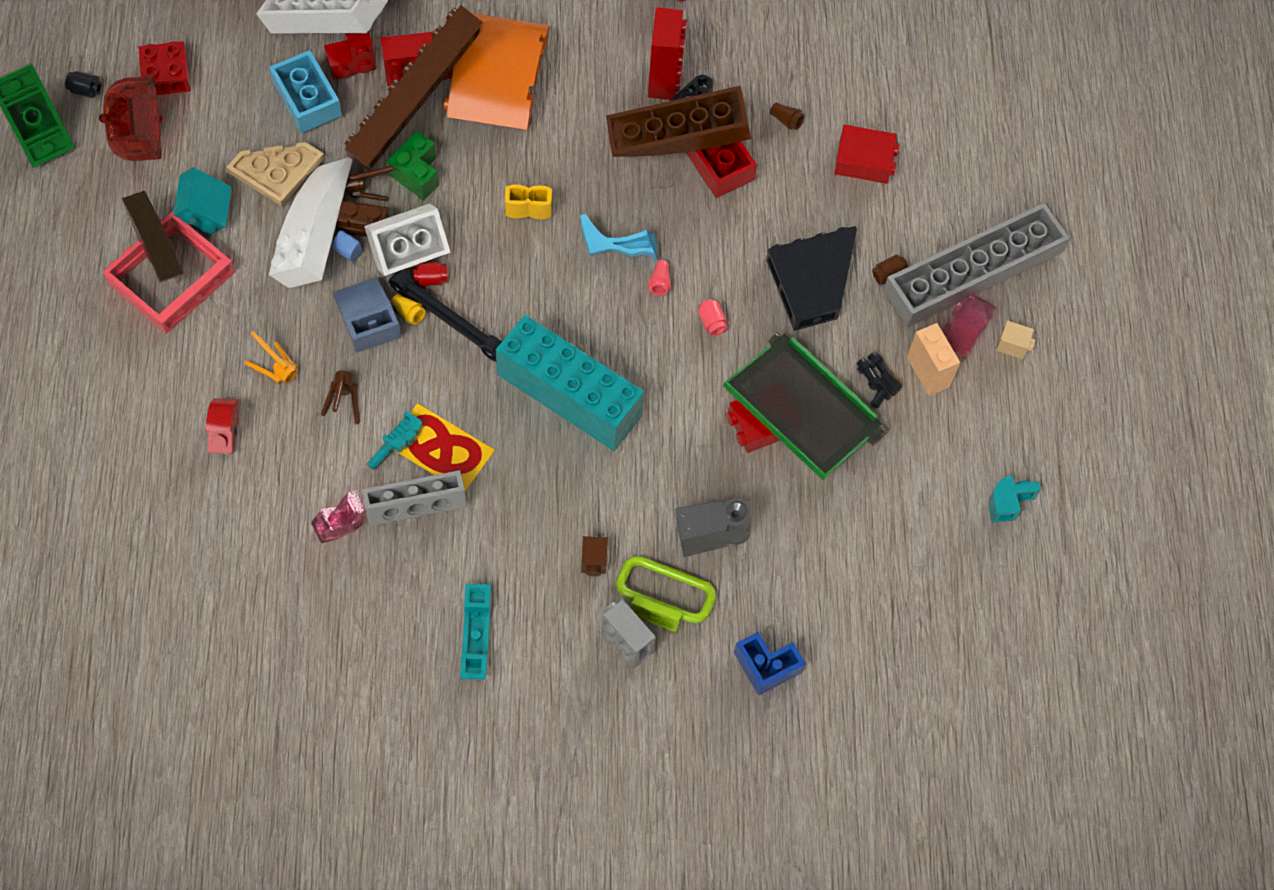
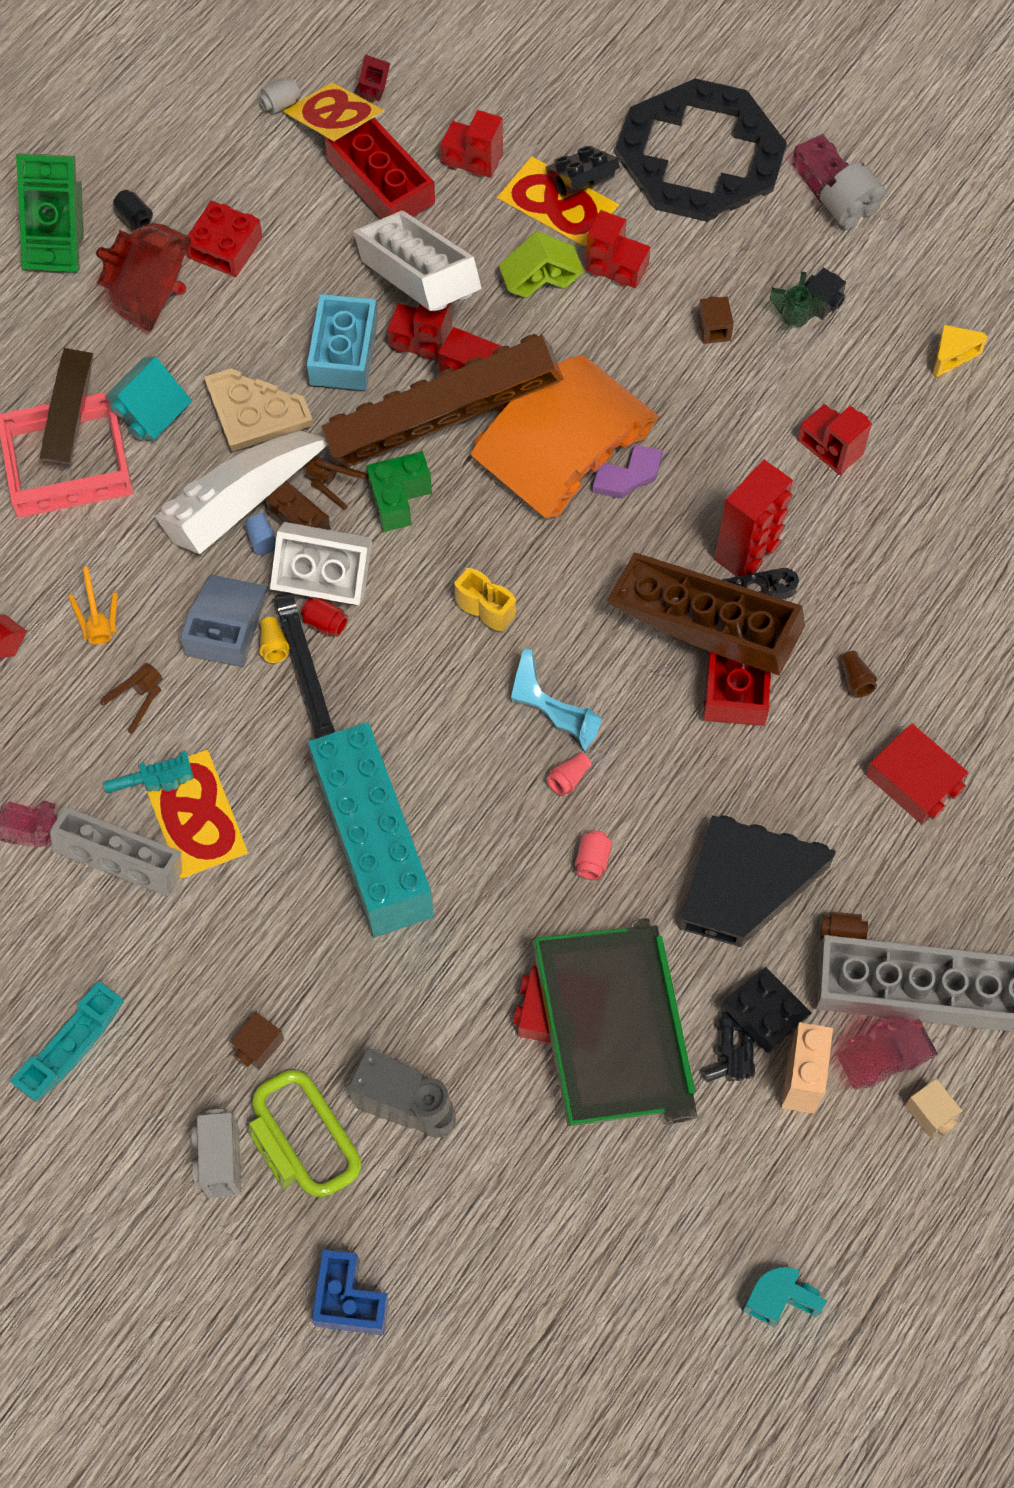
camera: 40 degrees right, 0 degrees up
(561, 67) = (620, 481): none -> medium lavender tile
(881, 343) = (766, 1009): none -> black plate

